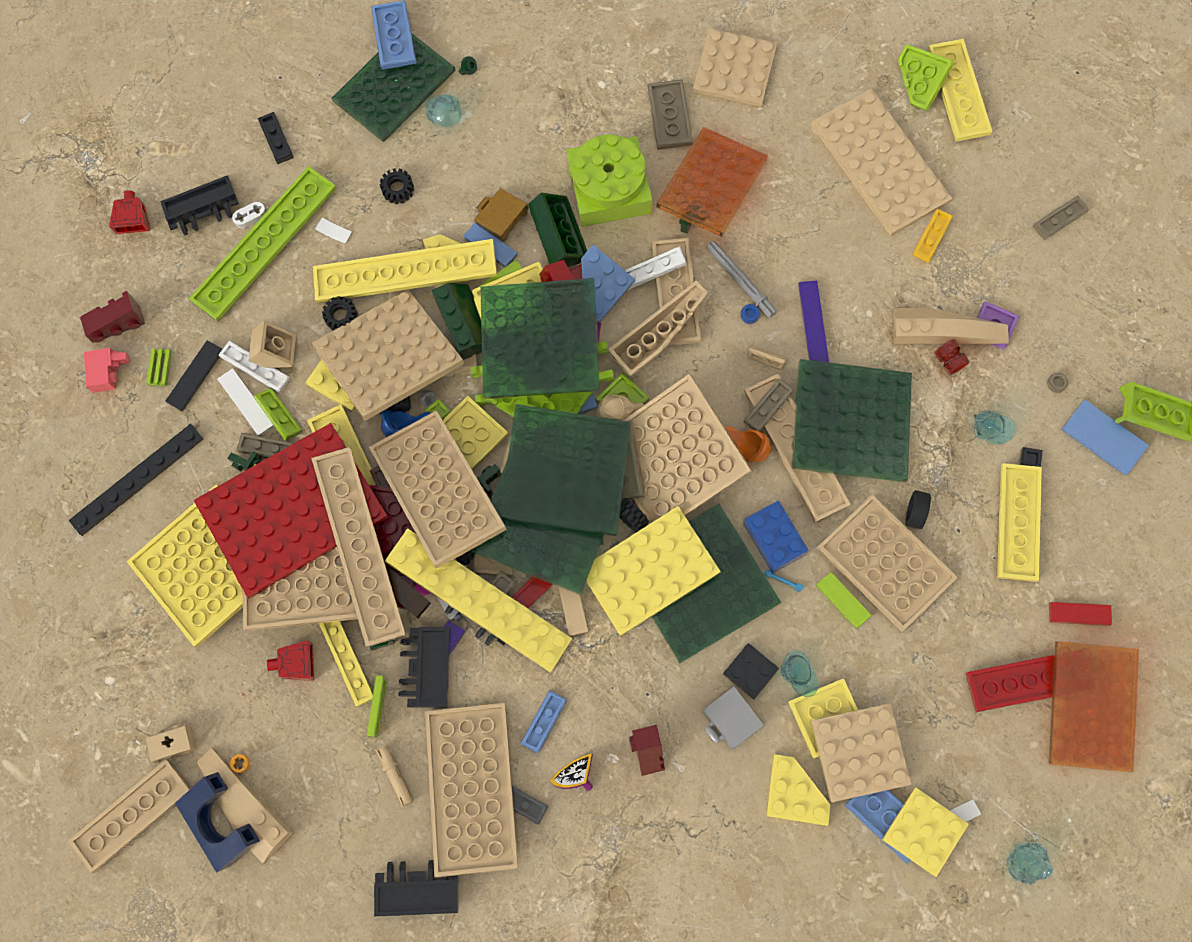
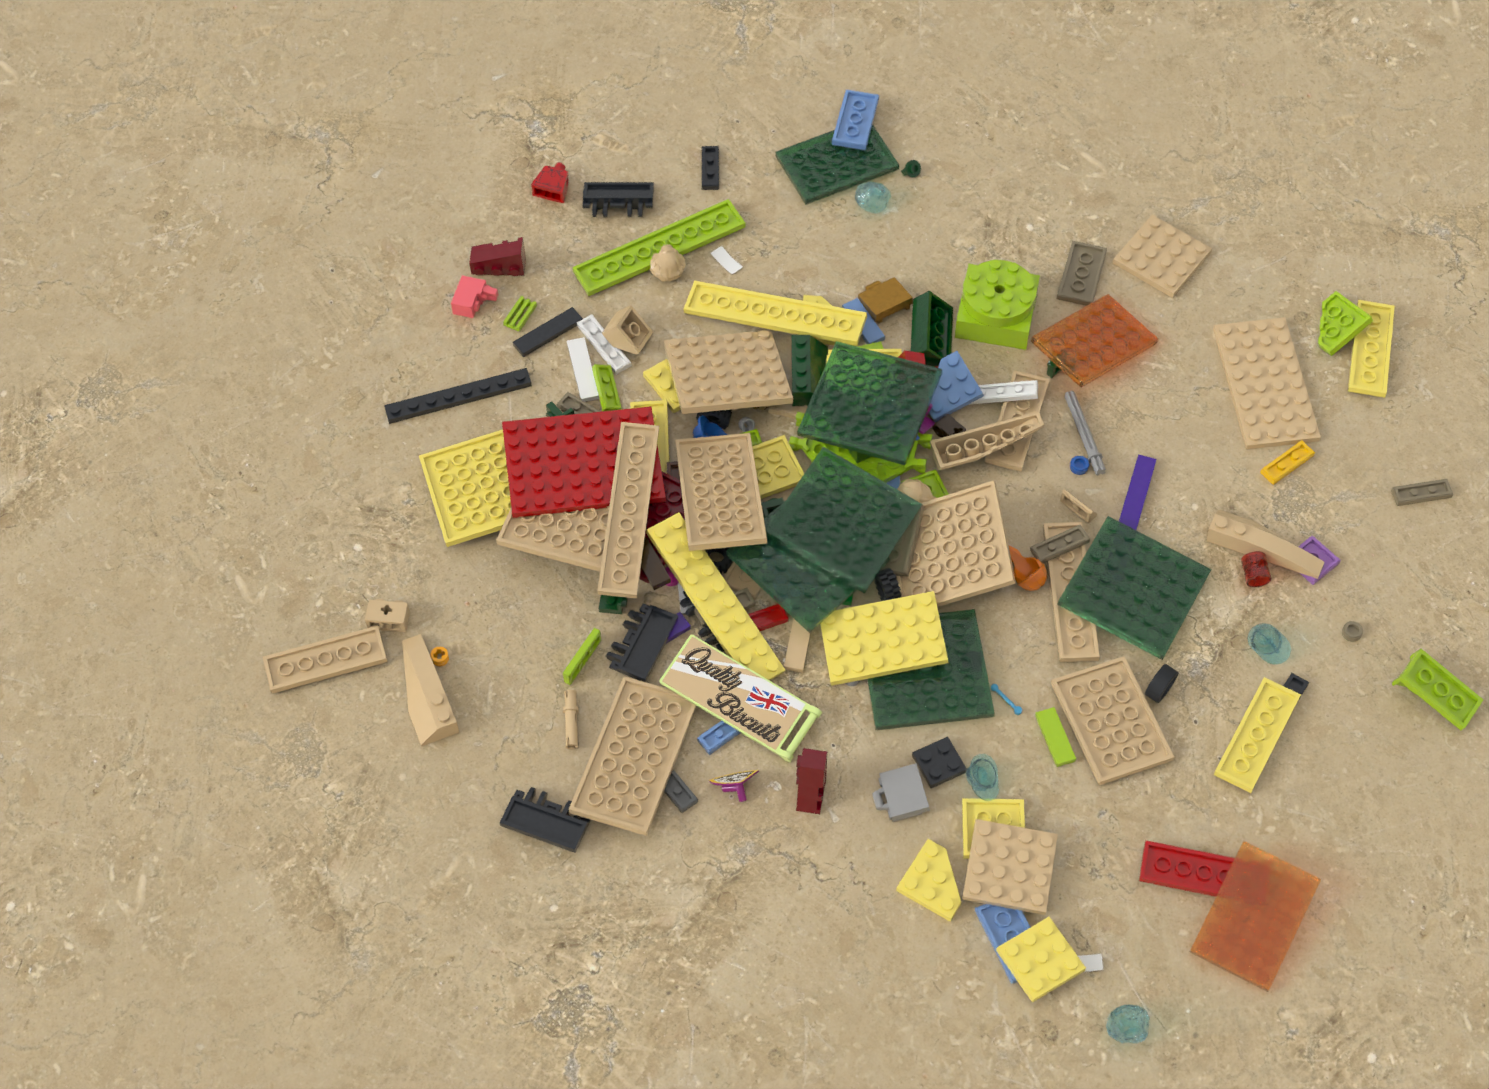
camera: 20 degrees right, 15 degrees down
(196, 811) = (385, 674): dark blue arch -> none
(249, 215) = (657, 220): white beam -> none
(279, 259) = (667, 264): none -> tan hair
(294, 662) = (526, 592): red torso -> none
(335, 305) = (699, 320): black tyre -> none
(347, 662) = (573, 607): light yellow plate -> none
(392, 177) = (800, 251): black tyre -> none
(540, 687) = (738, 696): none -> flag
(617, 326) = (947, 426): none -> dark brown piece
(775, 536) = (1015, 657): blue brick -> none
(1080, 613) = (1281, 836): red tile -> none
(1105, 437) = (1377, 695): medium blue tile -> none

